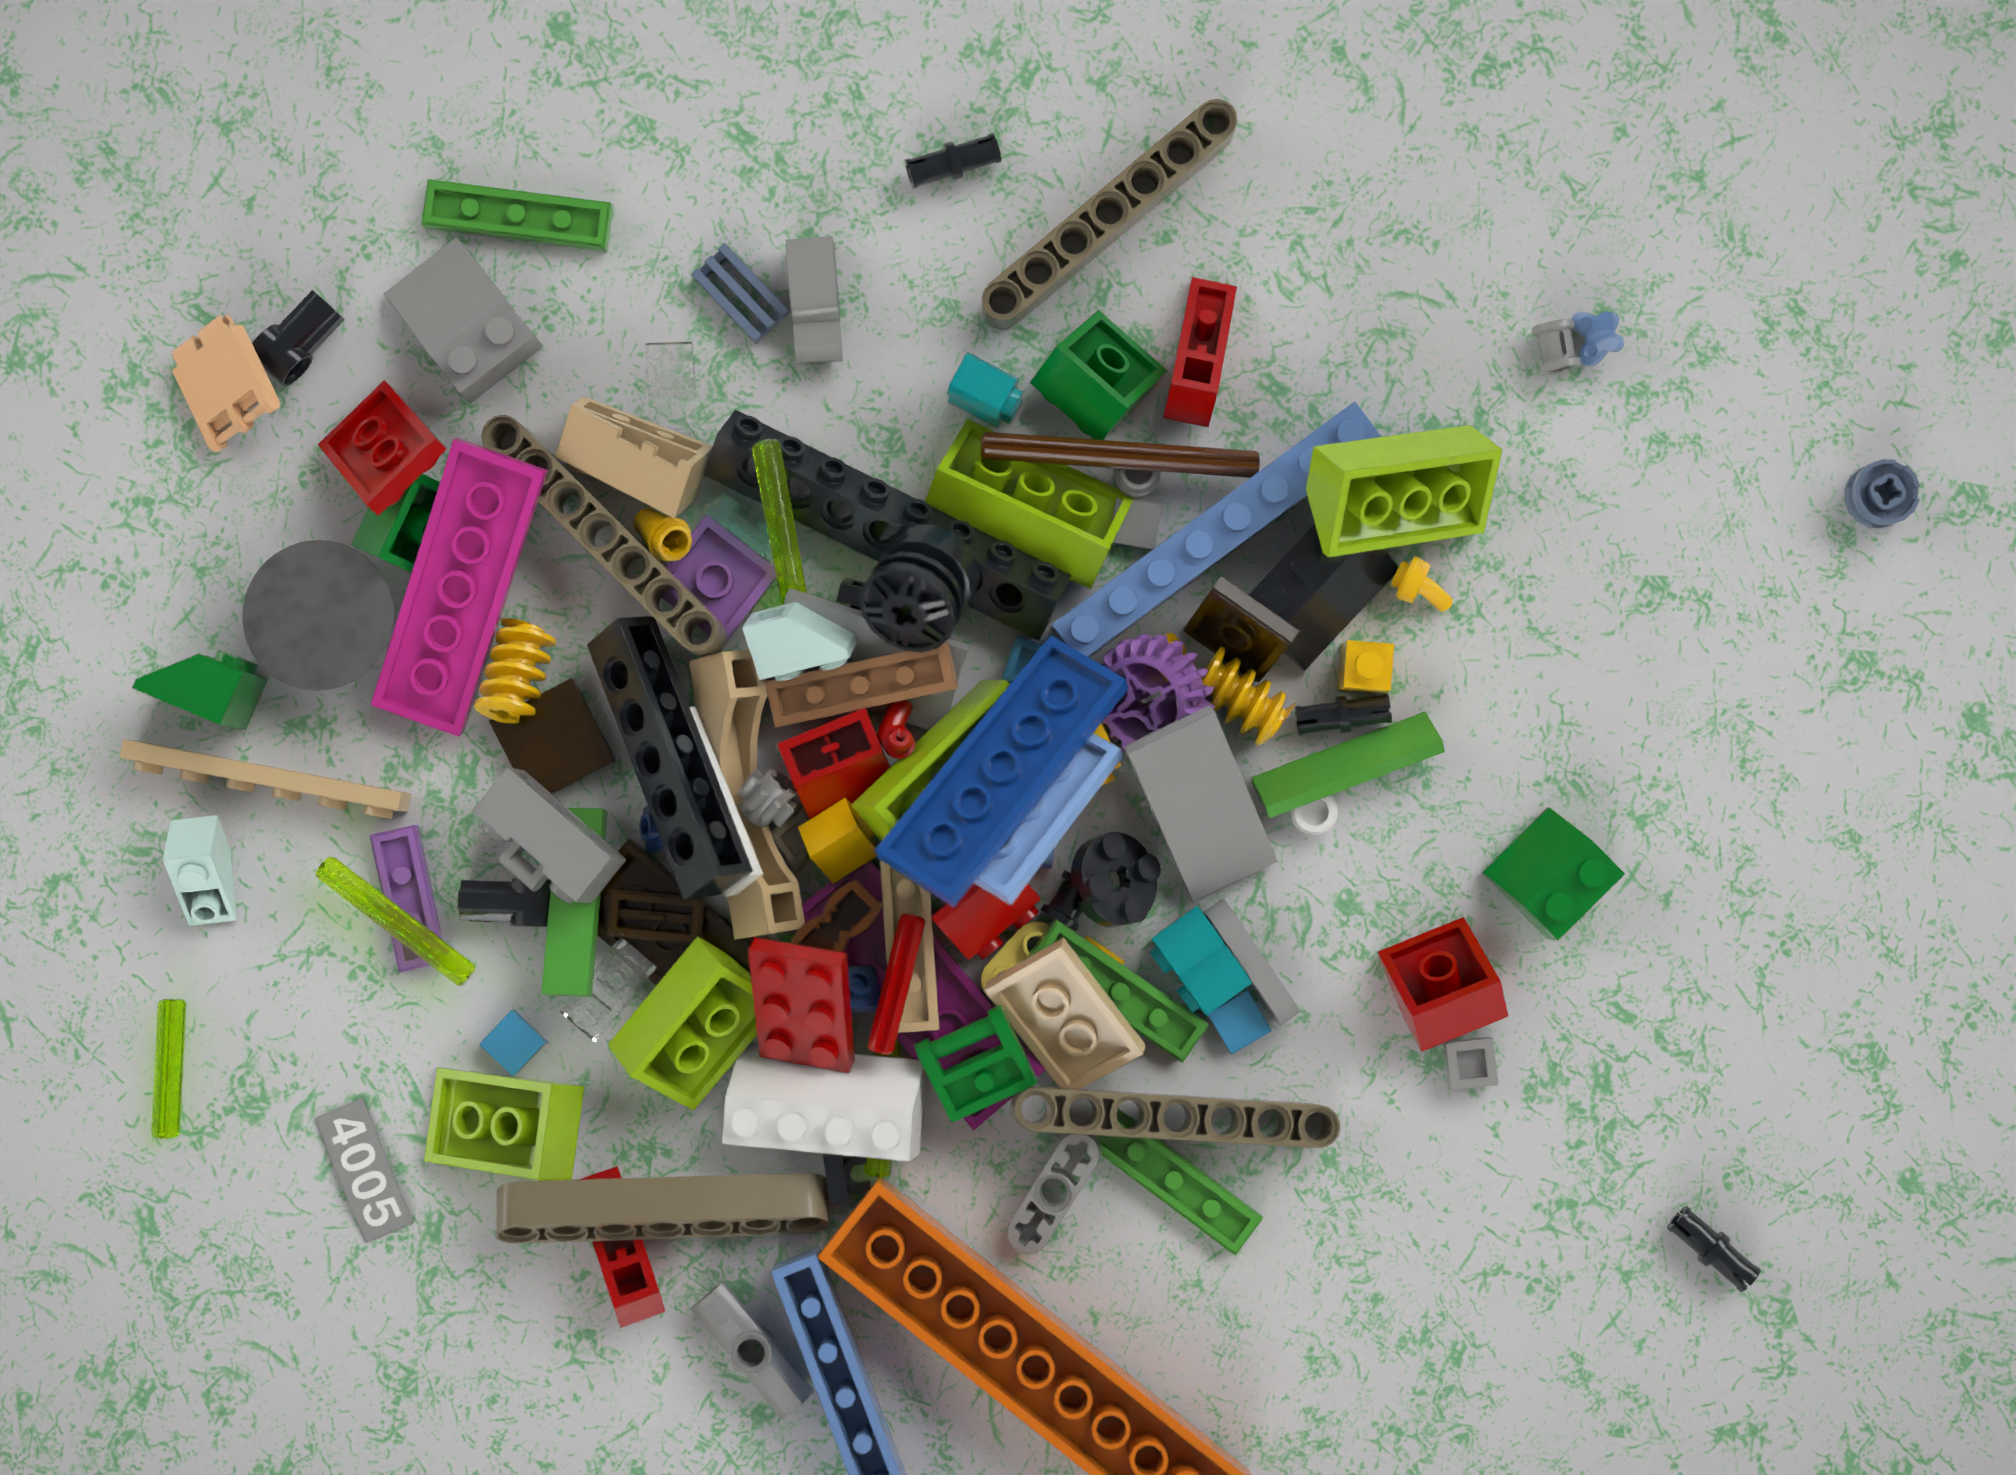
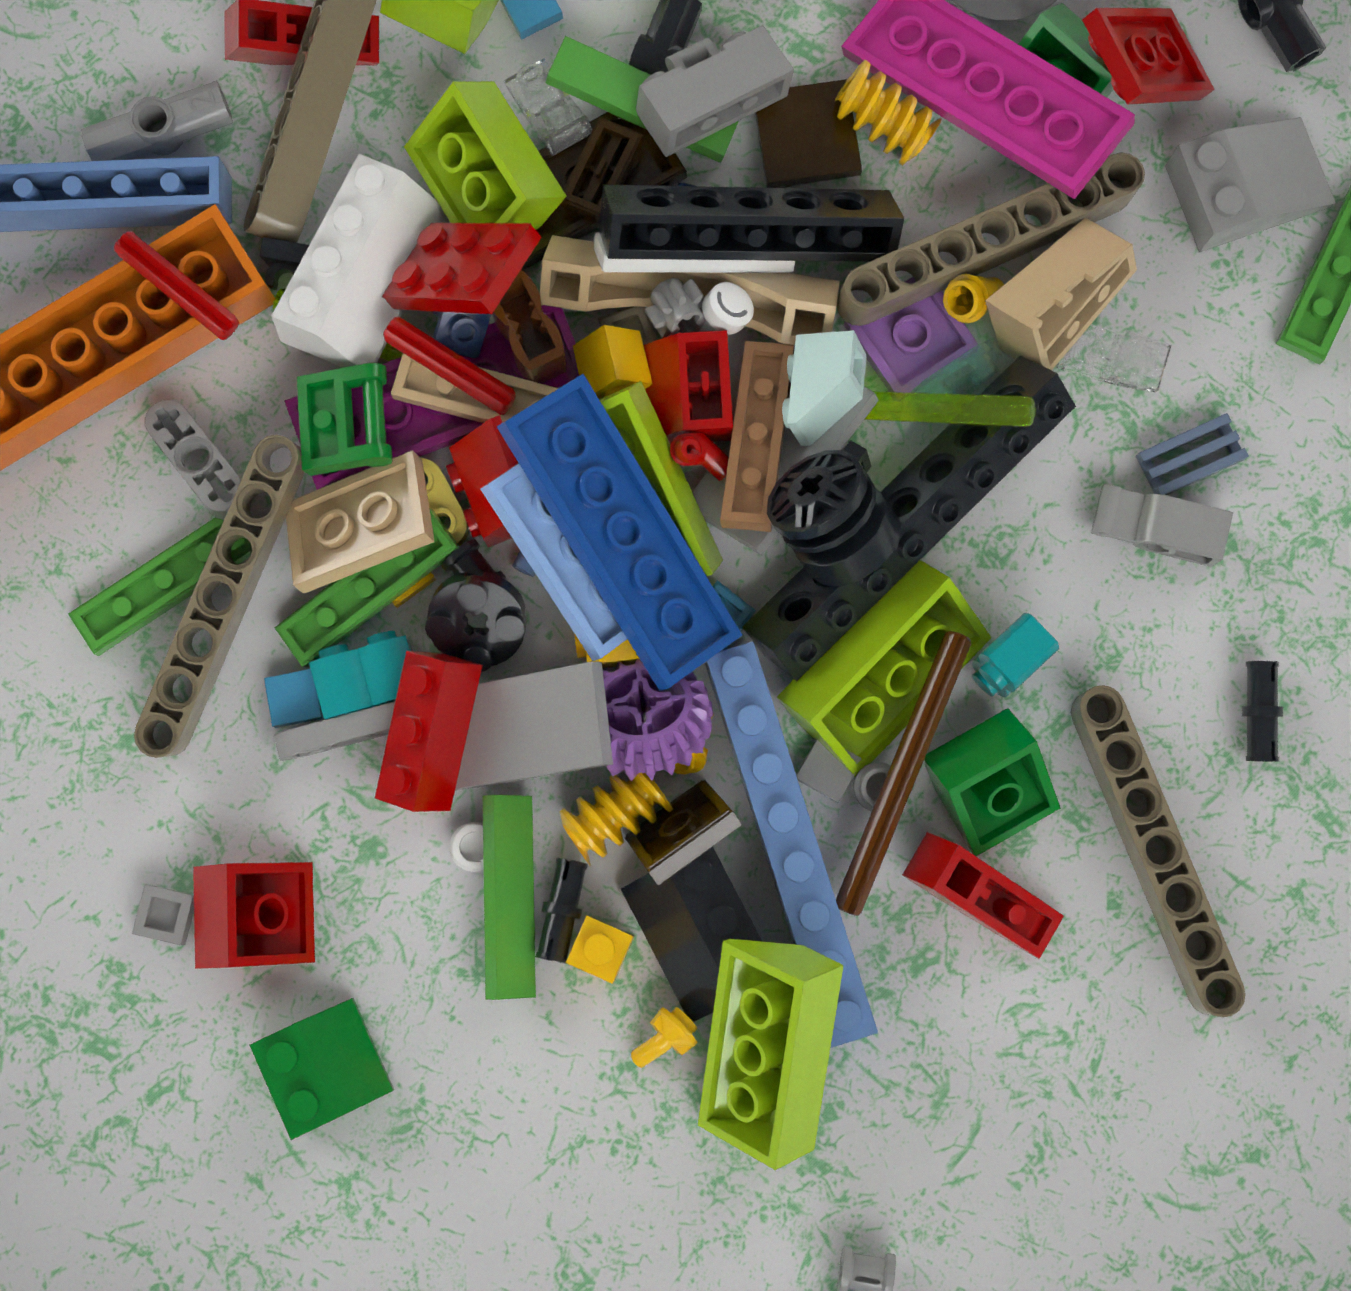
camera: 115 degrees right, 5 degrees down
(753, 751) = (727, 308): none -> white tile
(909, 1261) = (176, 285): none -> red axle
(1231, 884) = (428, 731): none -> red brick

